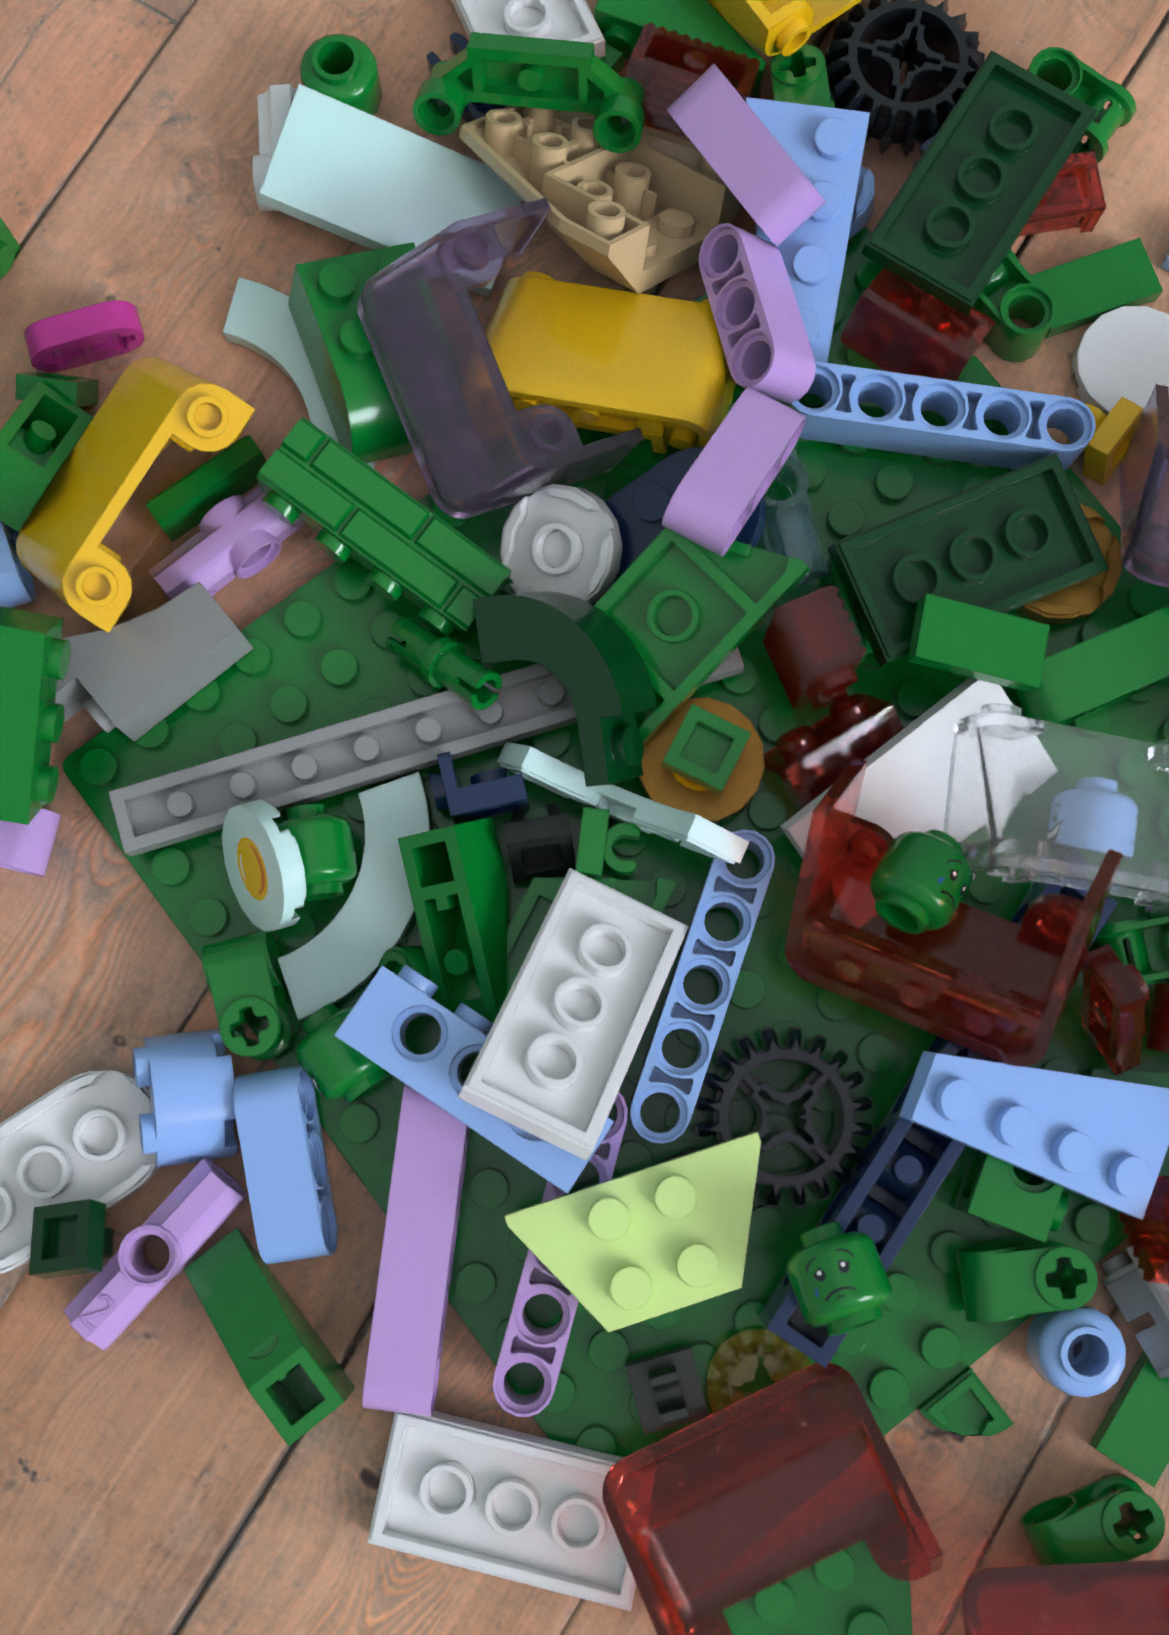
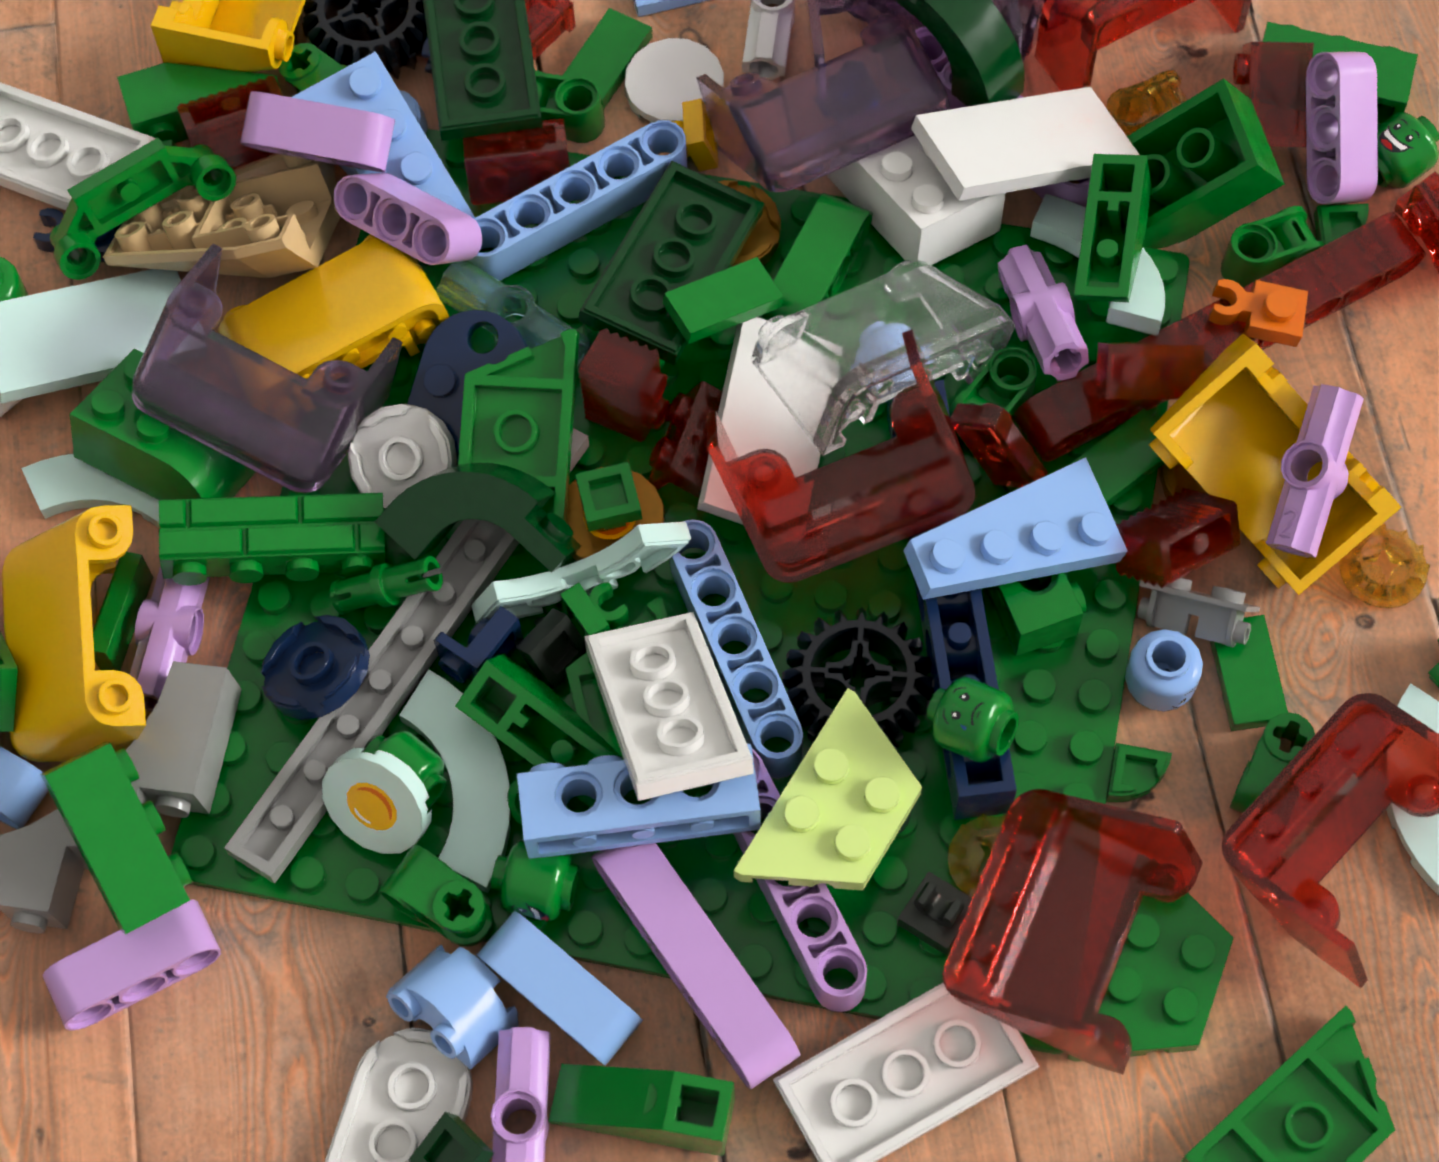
camera: 40 degrees left, 15 degrees down
(322, 687) = (315, 667): none -> dark blue tile
(734, 471) = (480, 311): lavender beam -> none
(920, 881) = (812, 456): green head -> none
(1011, 1282) = (1089, 659): green piece -> none

